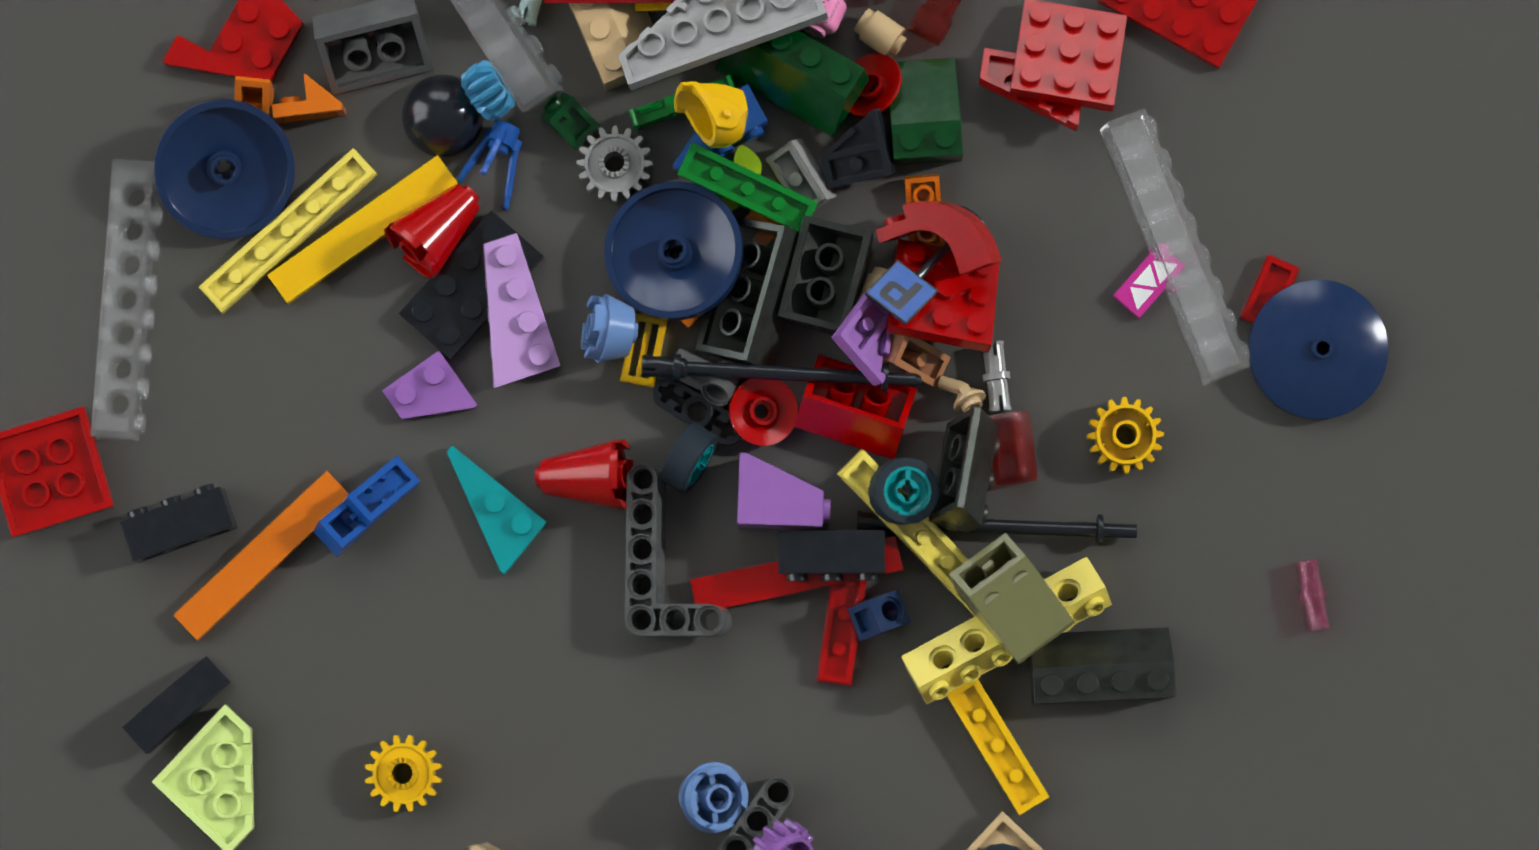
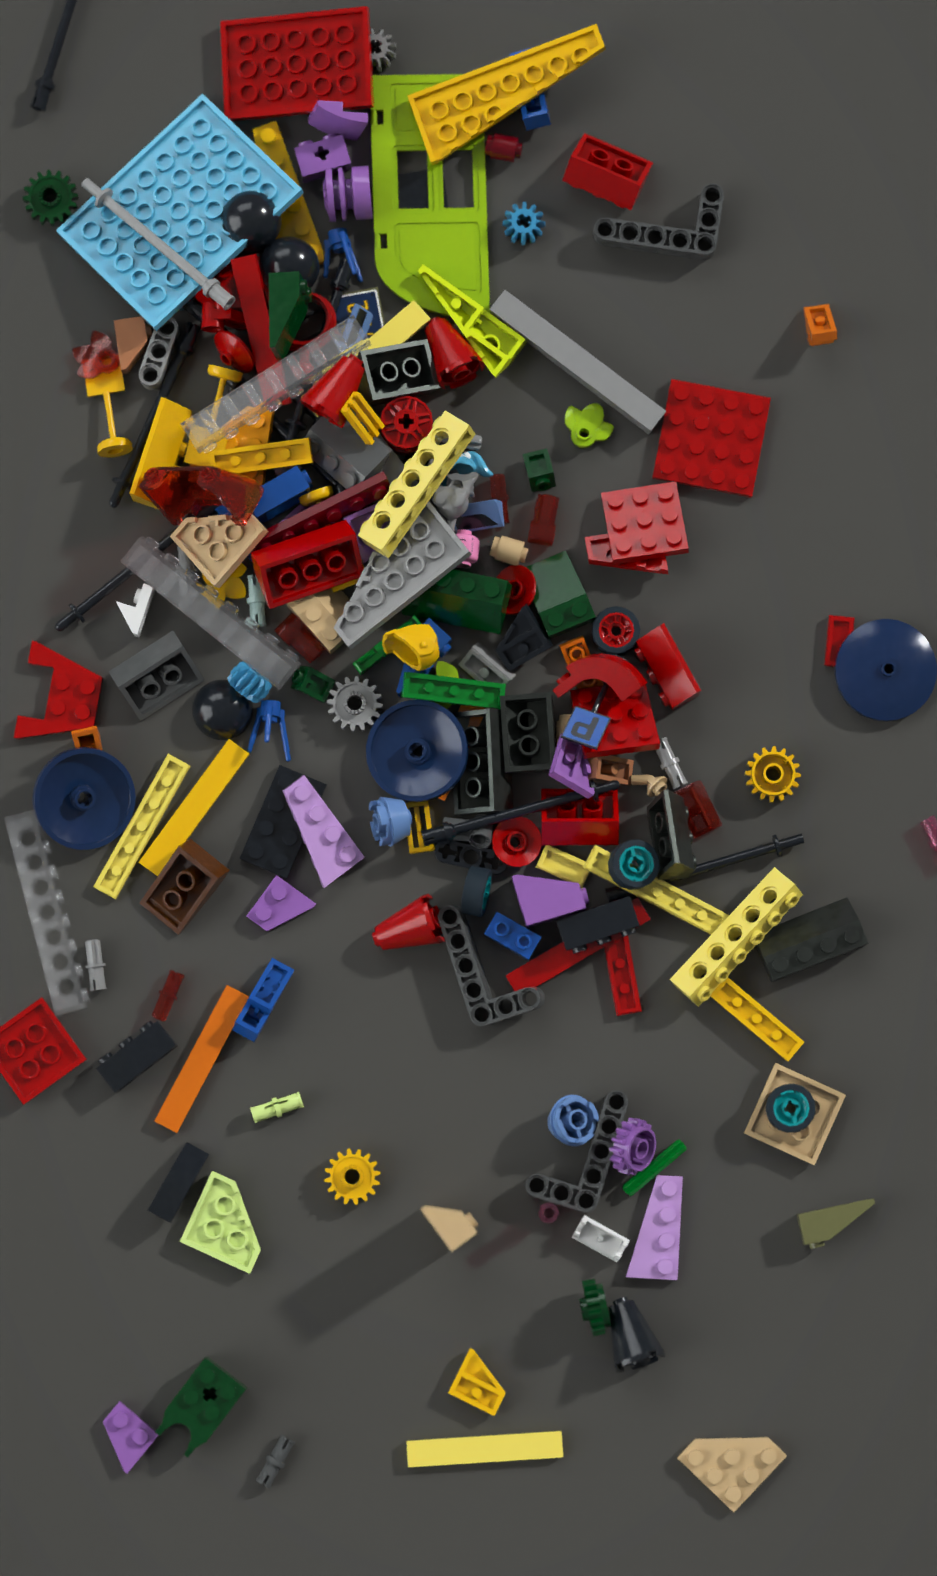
camera: 20 degrees left, 0 degrees up
(166, 388) = (95, 965): none -> light grey axle
(246, 459) = (167, 995): none -> clear red axle
(315, 324) = (184, 885): none -> reddish brown slope
(318, 105) = (133, 732): orange slope -> none
(337, 650) = (276, 1107): none -> yellowish green pin
(434, 229) = (244, 791): red cone -> none
(503, 518) = (362, 977): teal wing -> none
(570, 50) = (295, 633): none -> clear red piece
(716, 531) = (512, 936): none -> blue brick
(812, 462) = (562, 865): none -> light yellow tile
(879, 615) = (644, 956): dark blue brick -> none
(989, 165) = (615, 618): none -> wheel
(1011, 598) = (732, 913): olive slope -> none
(1034, 251) = (667, 667): none -> red slope
(1141, 288) = (753, 661): dark pink tile -> none
(1175, 246) = (763, 632): clear brick -> none

